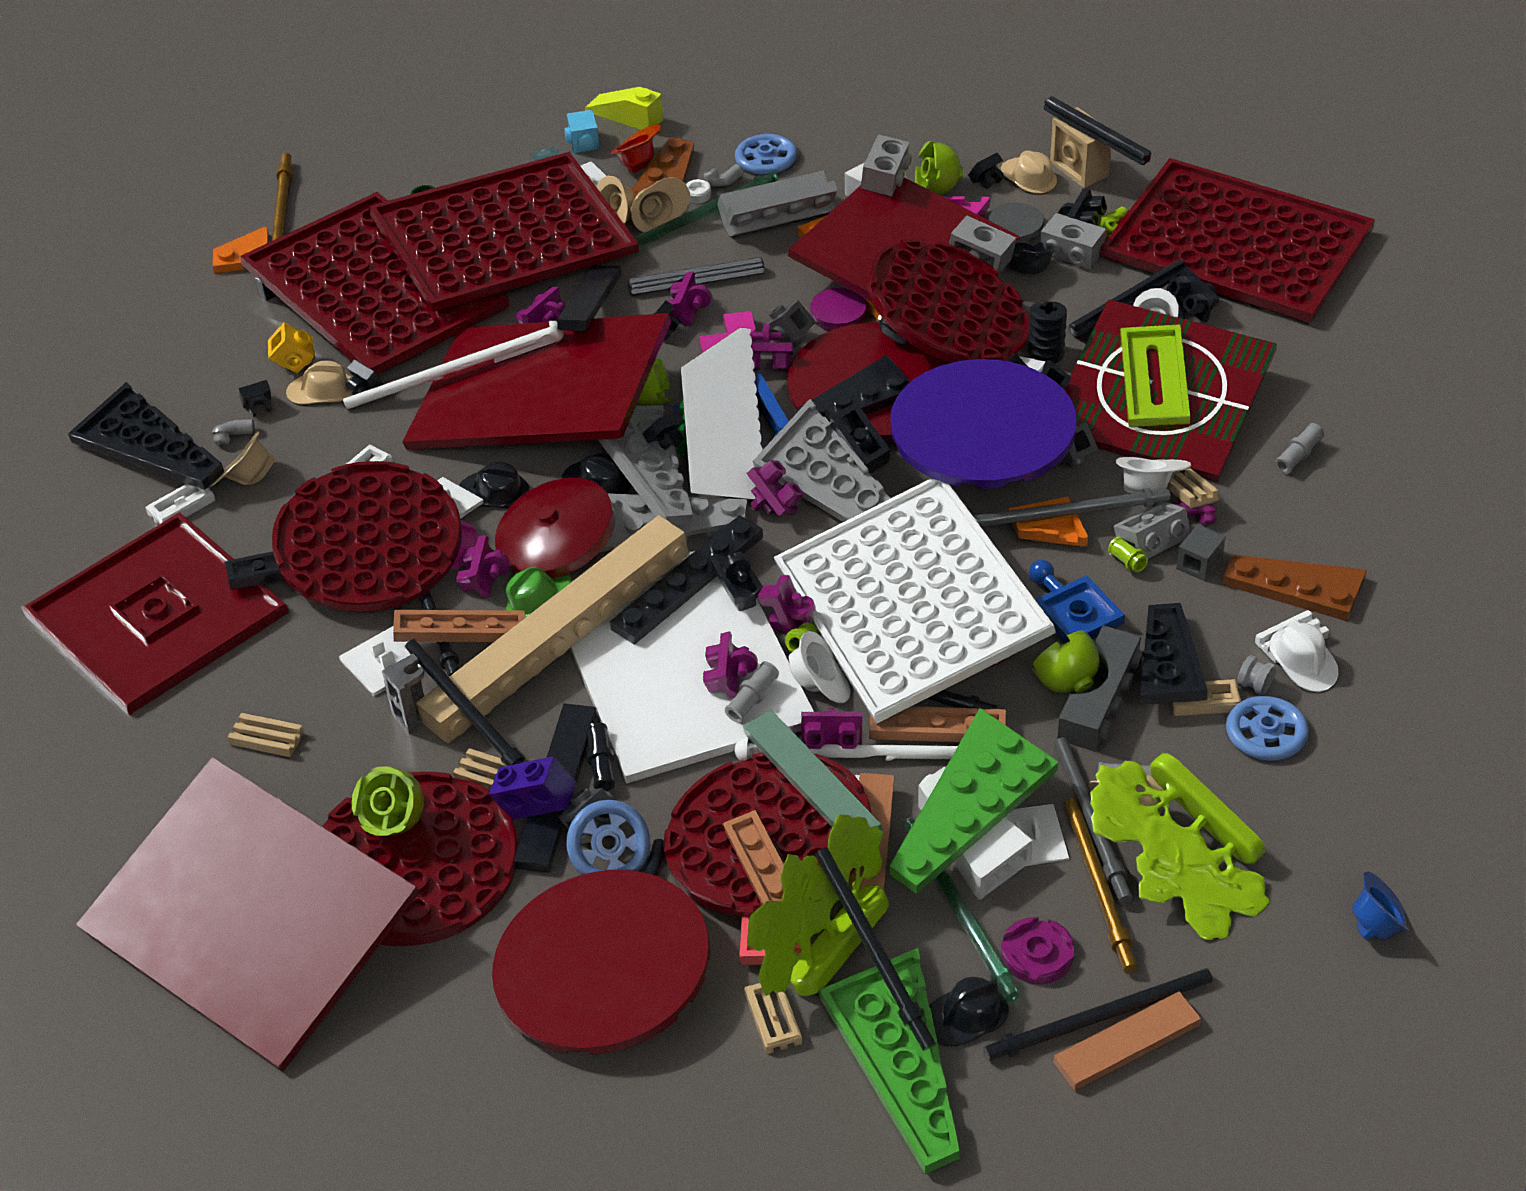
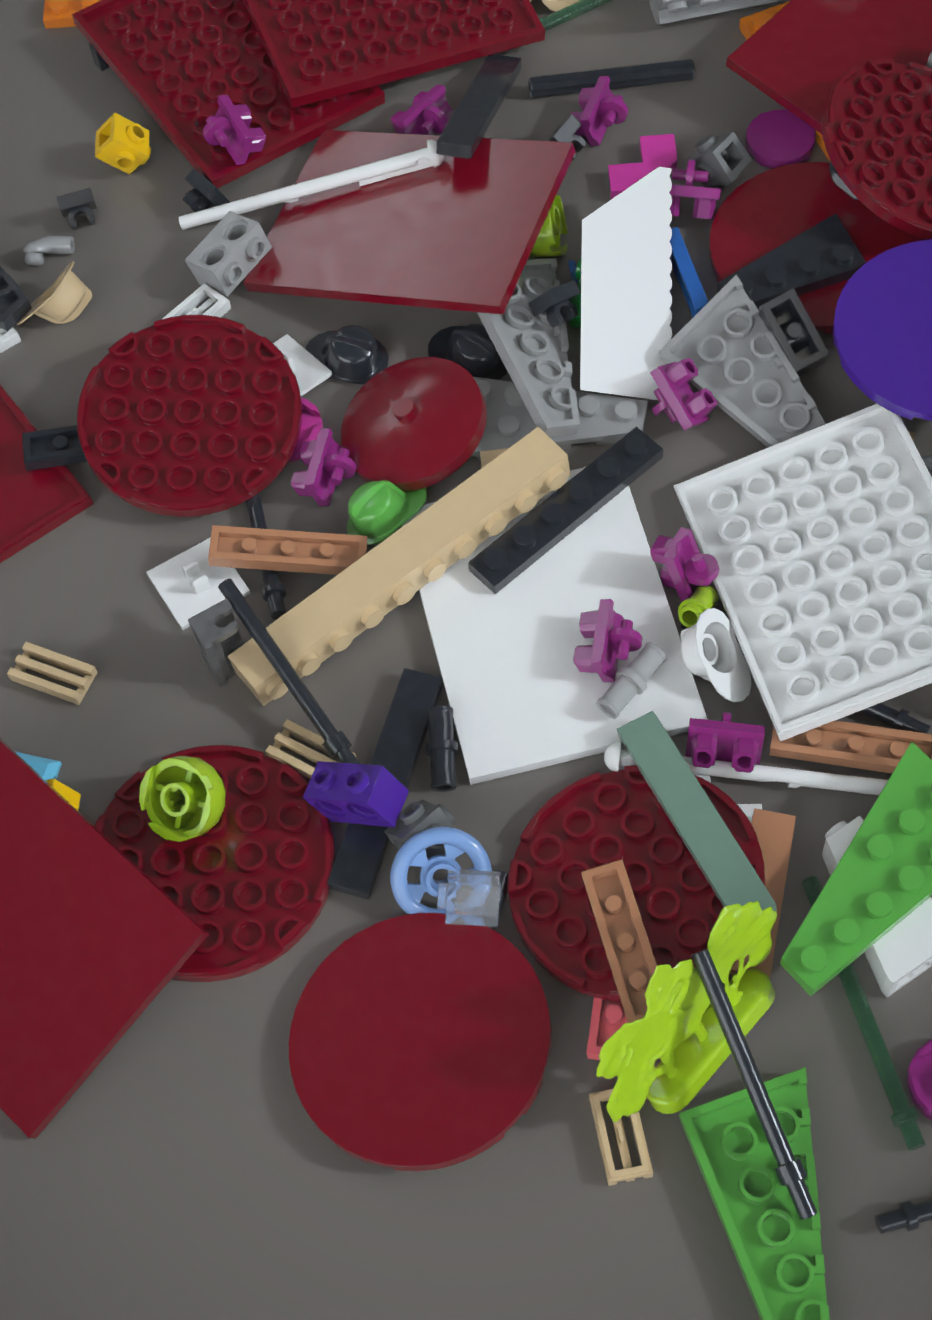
camera: 10 degrees right, 15 degrees up
(320, 383) = (154, 194): tan piece -> none
(385, 328) = (231, 130): none -> magenta hips
(388, 419) = (228, 253): none -> light grey brick
(633, 851) = (470, 897): none -> clear brick
(738, 580) = (627, 521): black hips -> none
(968, 1011) = (859, 1160): black piece -> none

